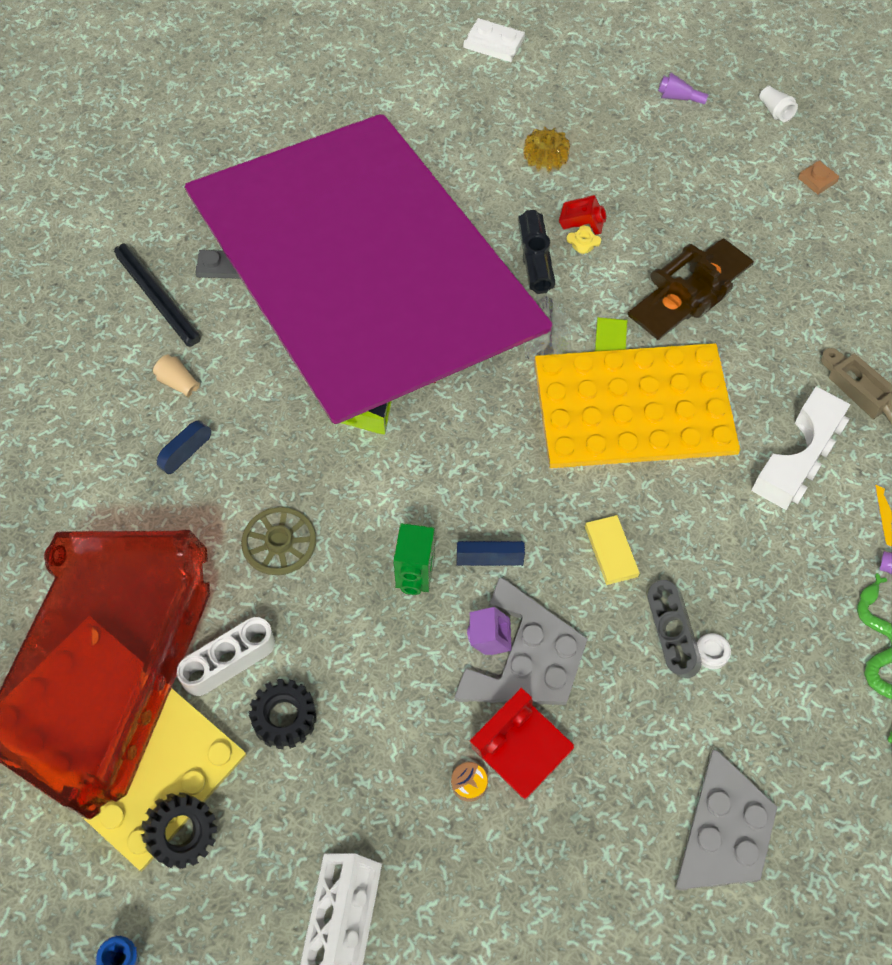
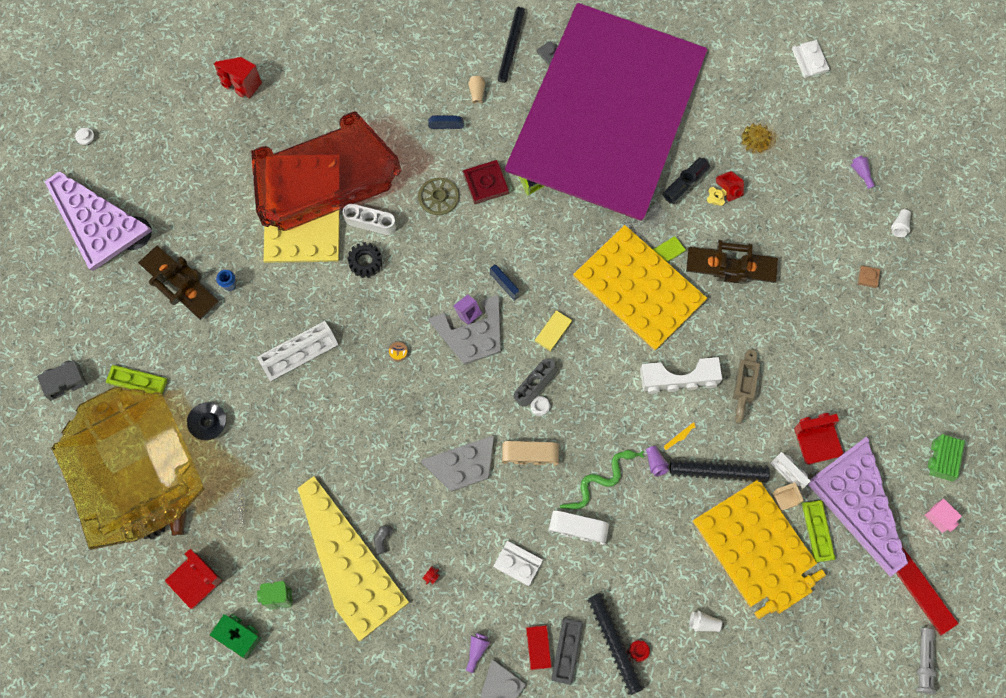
camera: 50 degrees right, 10 degrees up
(156, 825) = (295, 253): black tyre -> none
(318, 466) = (485, 182): none -> dark red plate
(414, 558) = (471, 253): green brick -> none
(521, 745) = (428, 357): red bracket -> none
(780, 718) = (530, 452): none -> tan beam

